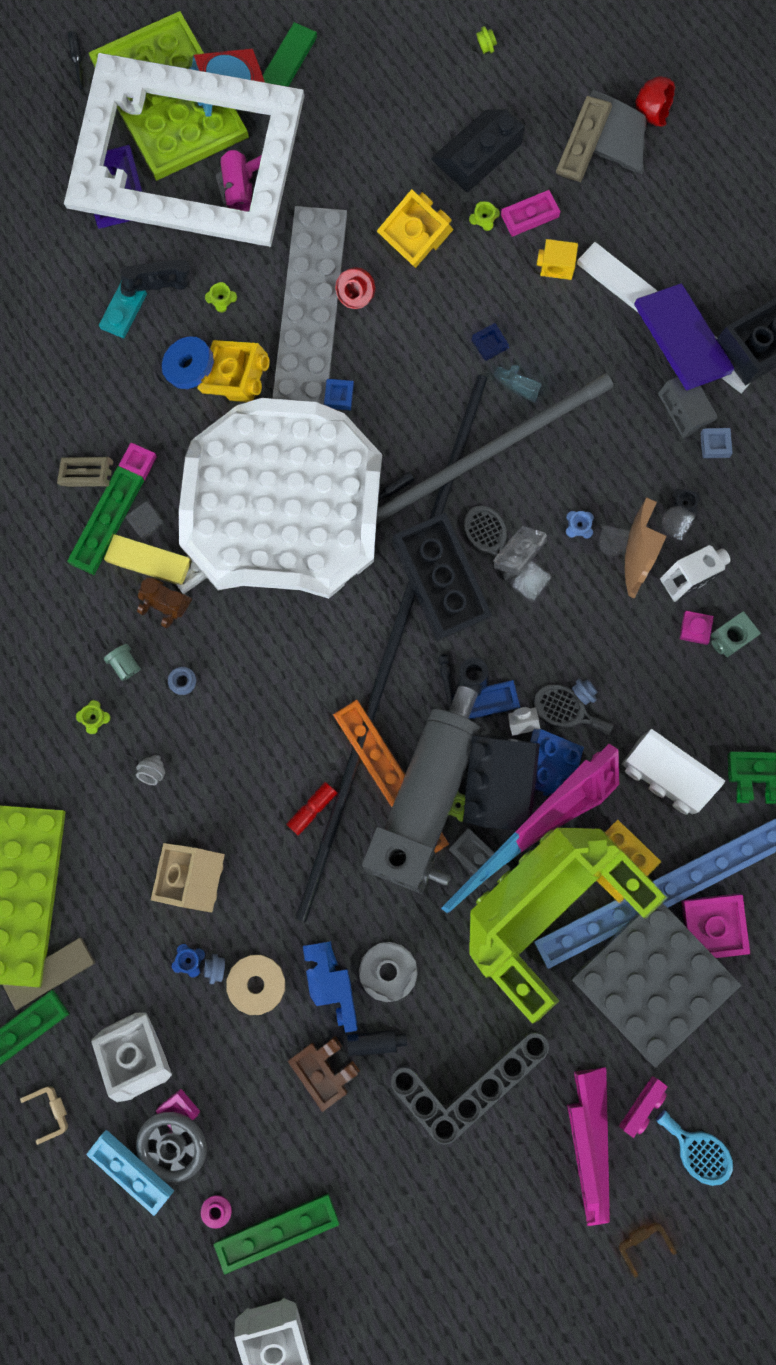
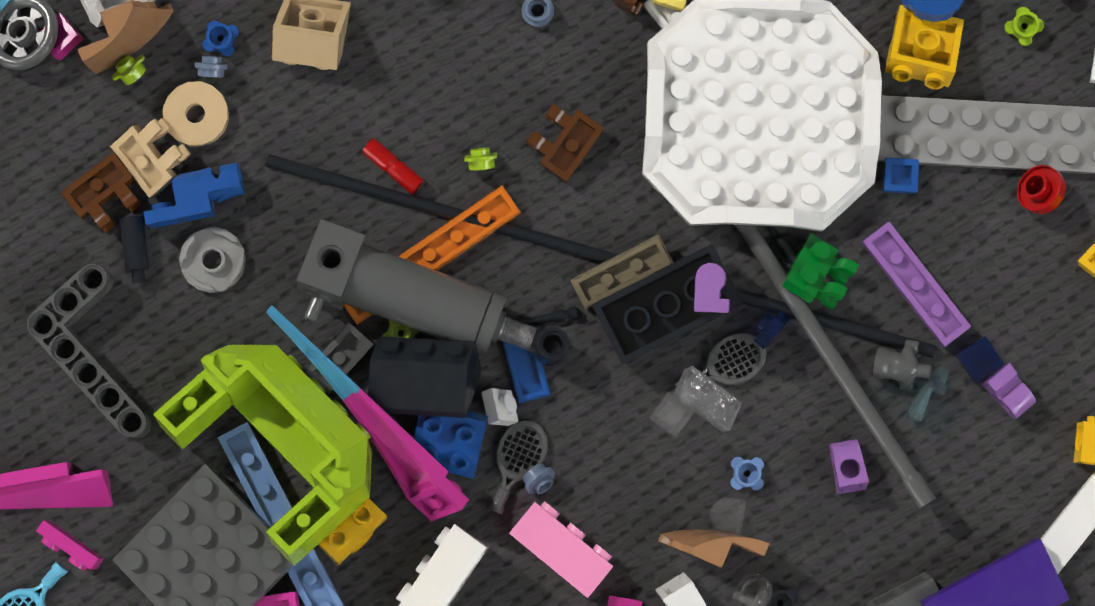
camera: 90 degrees right, 5 degrees up
(176, 1043) = (128, 30): none -> medium nougat slope
(212, 1044) = (129, 69): none -> lime plate
(295, 1033) = (143, 159): none -> tan plate
(302, 656) = (571, 145): none -> reddish brown plate
(309, 732) = (480, 159): none -> lime plate
(410, 616) = (621, 271): none -> dark tan tile
(413, 464) = (810, 269): none -> green plate
(428, 387) = (916, 284): none -> medium lavender plate
(433, 536) = (708, 286): none -> medium lavender leg
(462, 499) = (769, 328): none -> clear blue plate
(495, 399) = (900, 365): none -> dark grey piece
(516, 320) = (1009, 391): none -> medium lavender leg
(574, 444) = (848, 466): none -> medium lavender leg
(643, 673) = (562, 548): none -> bright pink brick

